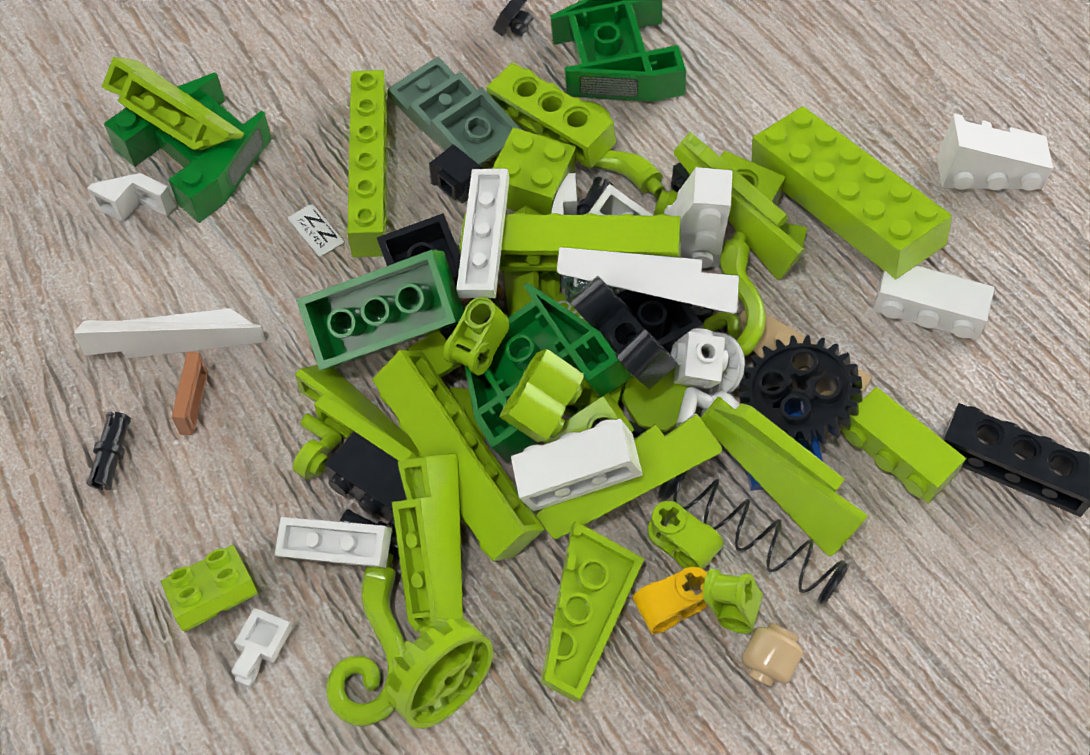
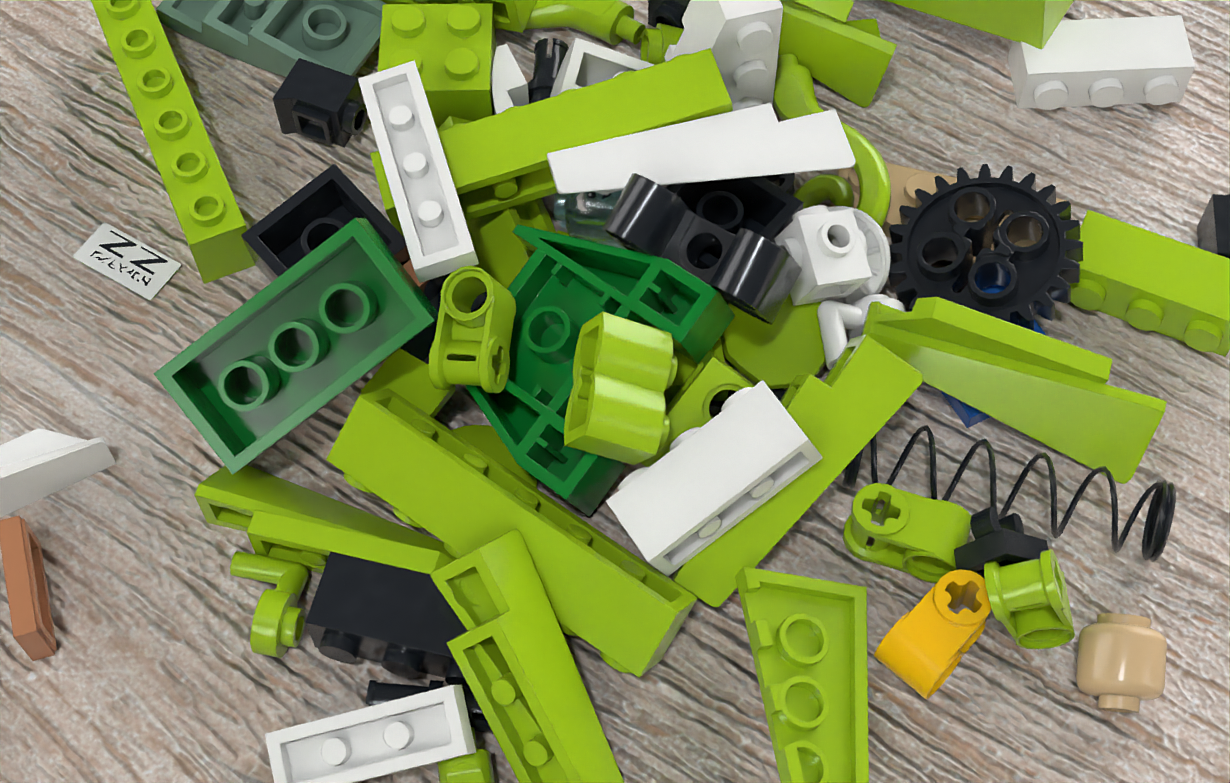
camera: 20 degrees left, 0 degrees up
(726, 561) = (997, 541): none -> black tile

